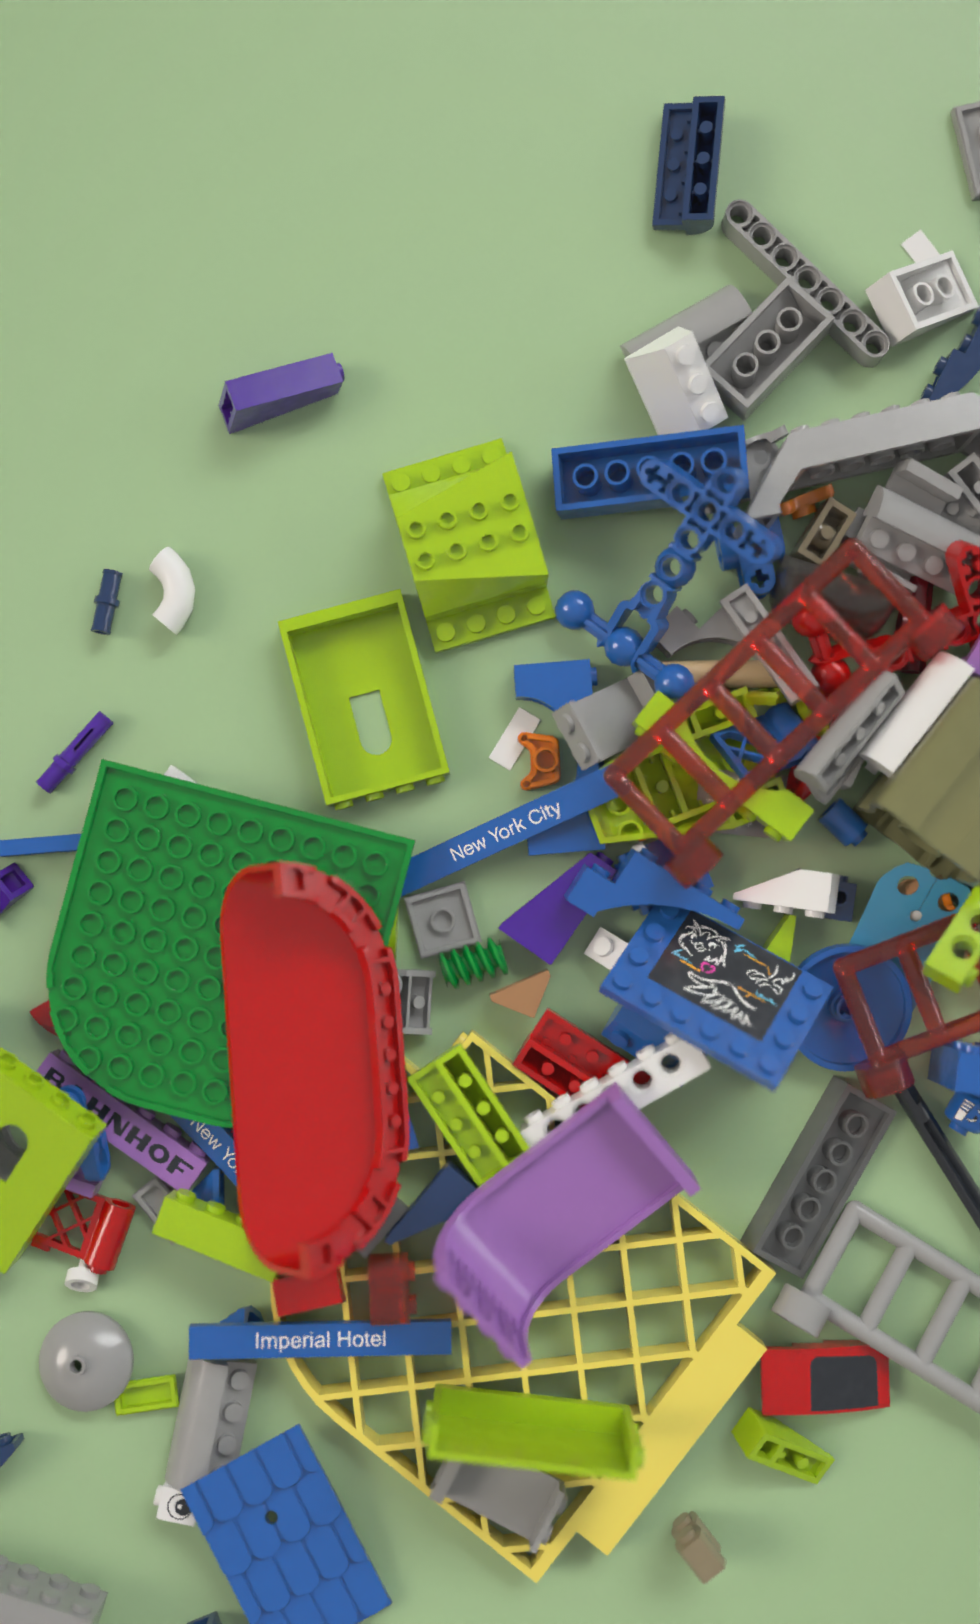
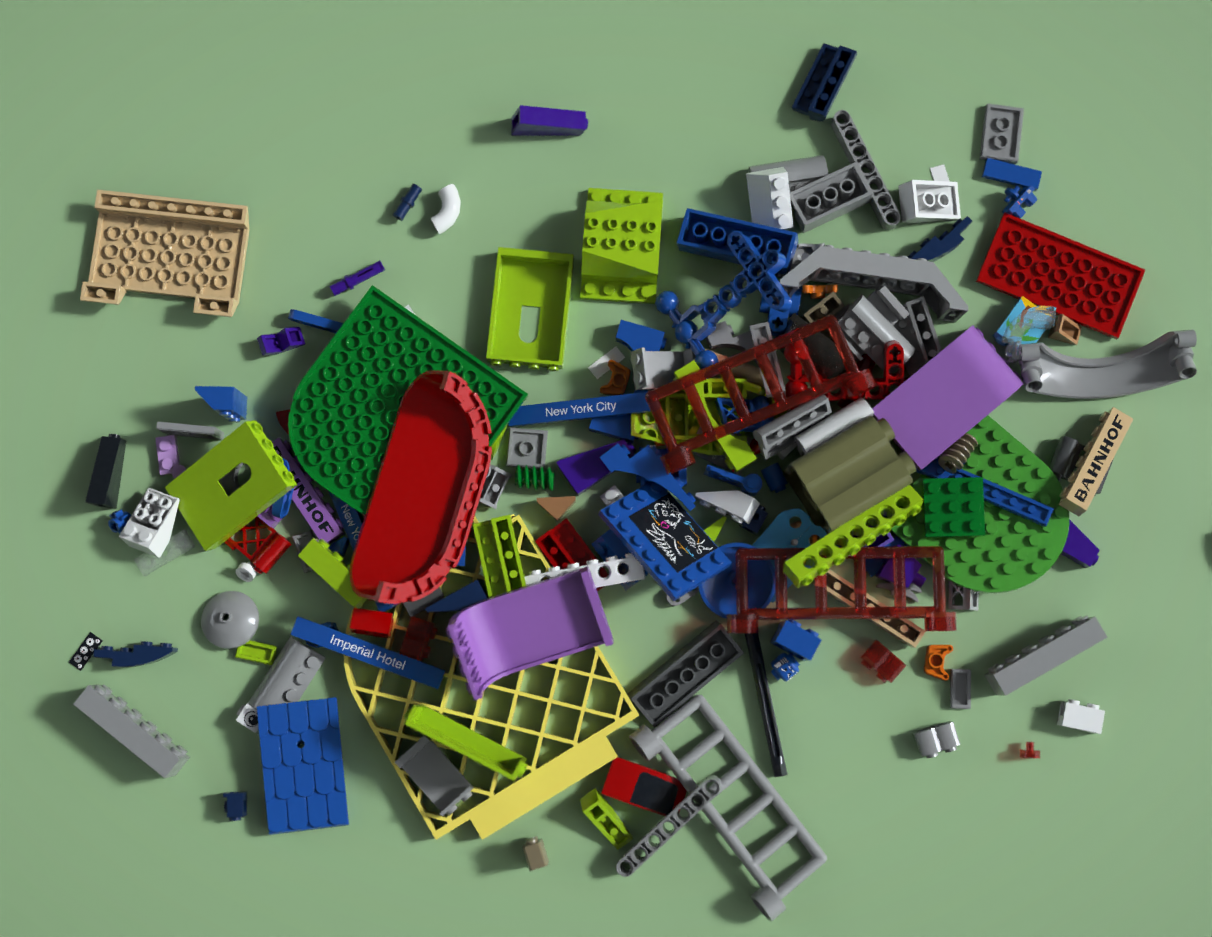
camera: 20 degrees right, 5 degrees down
(807, 851) = (749, 485): none -> blue piece
(886, 1441) = (662, 833): none -> light grey beam

